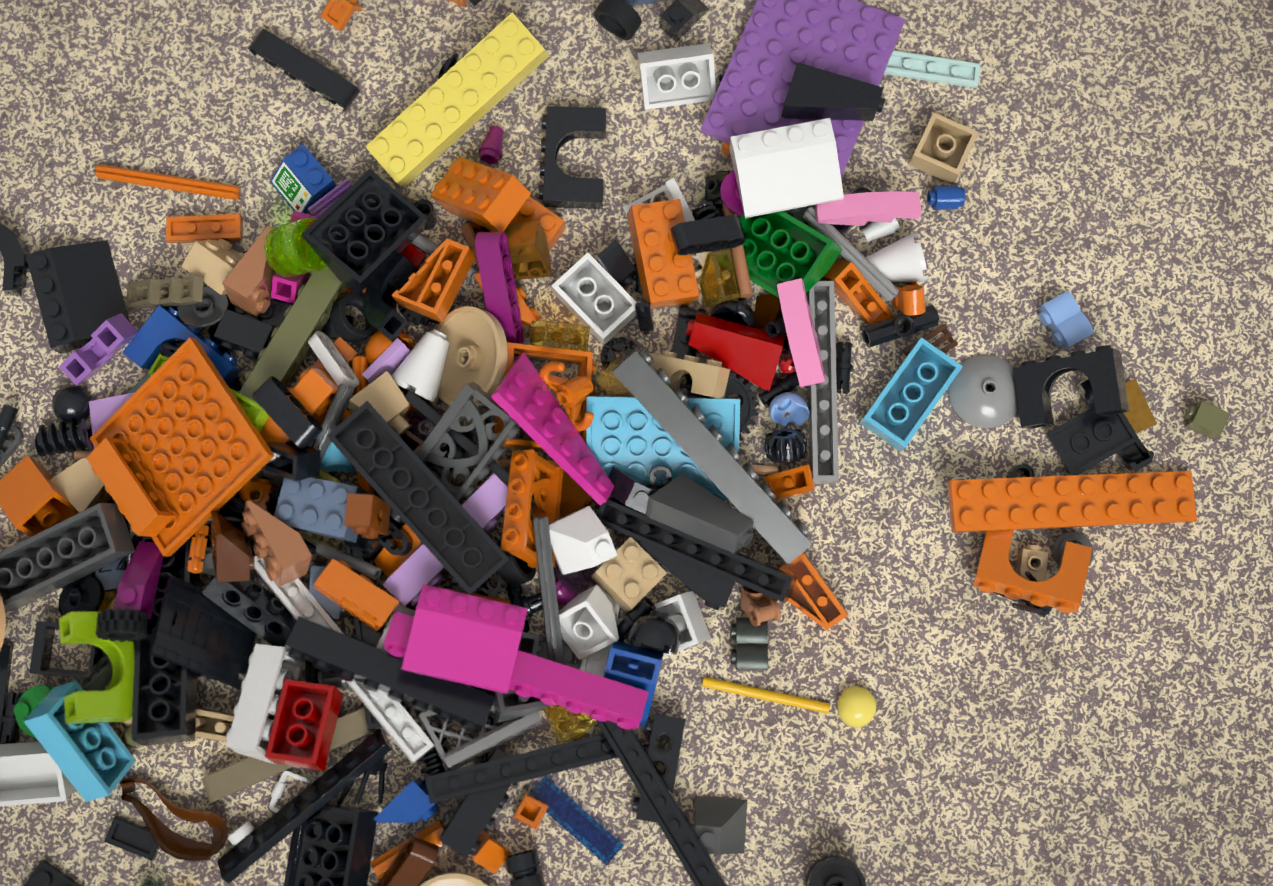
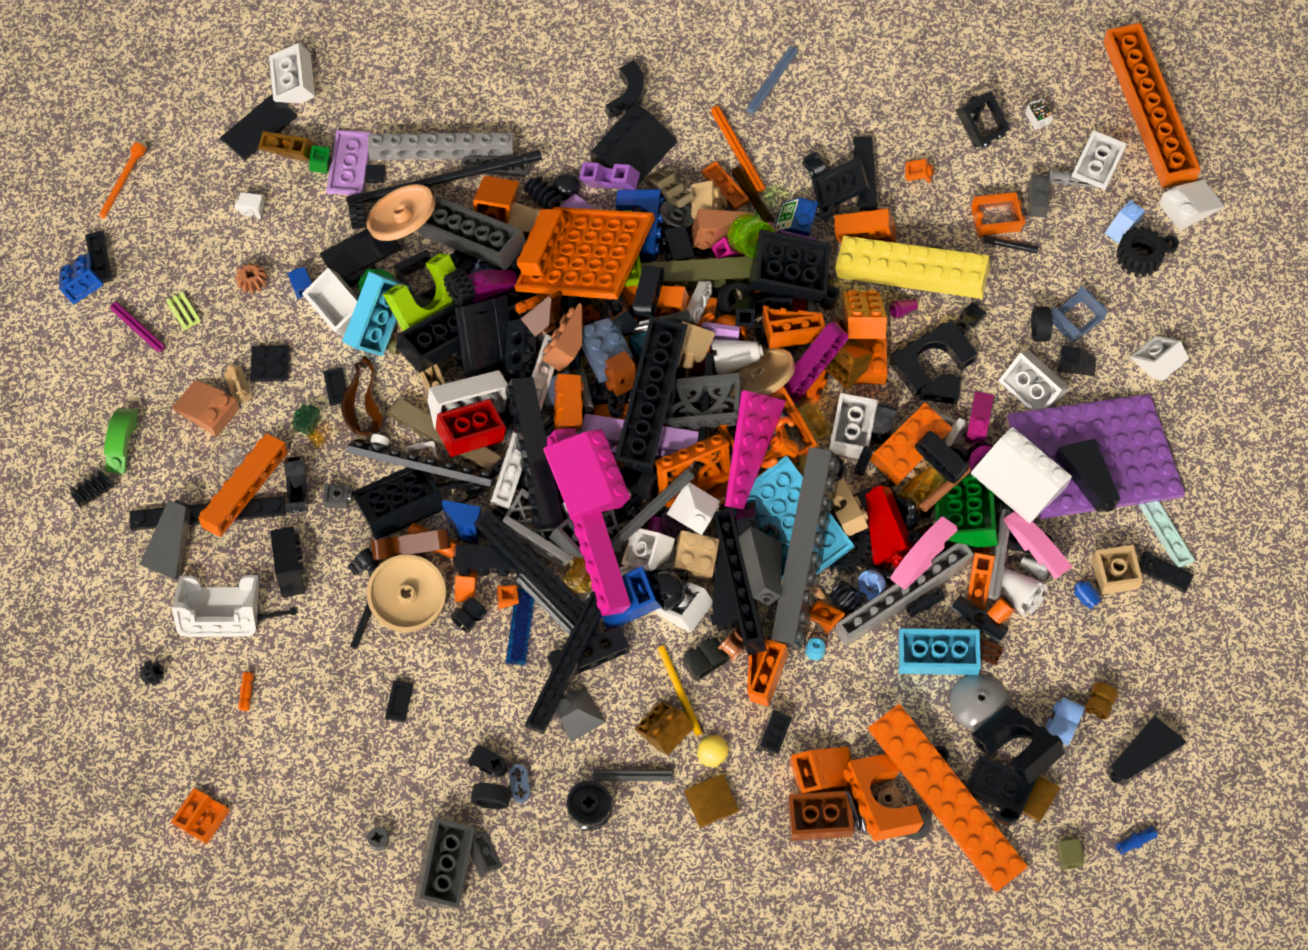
camera: 55 degrees right, 15 degrees down
(109, 84) = (771, 80): none -> sand blue axle
(238, 207) = (753, 196): none -> dark brown axle
(293, 110) = (835, 185): none -> black piece
(368, 114) = (867, 225): none -> orange wedge
(553, 83) = (970, 317): none -> black plate
(581, 773) = (546, 603): none -> dark grey axle
(619, 173) = (942, 389): none -> black slope
(676, 159) = (979, 417): none -> dark pink slope
(798, 742) = (665, 727): none -> pearl gold slope
(815, 518) = (815, 648): none -> medium azure hat
(826, 812) = (632, 775): none -> dark grey axle
(882, 630) = (773, 733): none -> black hinge
(911, 747) = (711, 800): none -> pearl gold slope
(957, 609) = (820, 770): none -> orange slope
(974, 101) = (1165, 572): none -> black plate
(1006, 646) = (820, 816): none -> dark orange brick
(1069, 269) = (1101, 700): none -> pearl gold wheel
(1149, 264) = (1147, 749): none -> black slope
(1232, 343) = (1136, 840): none -> blue pin

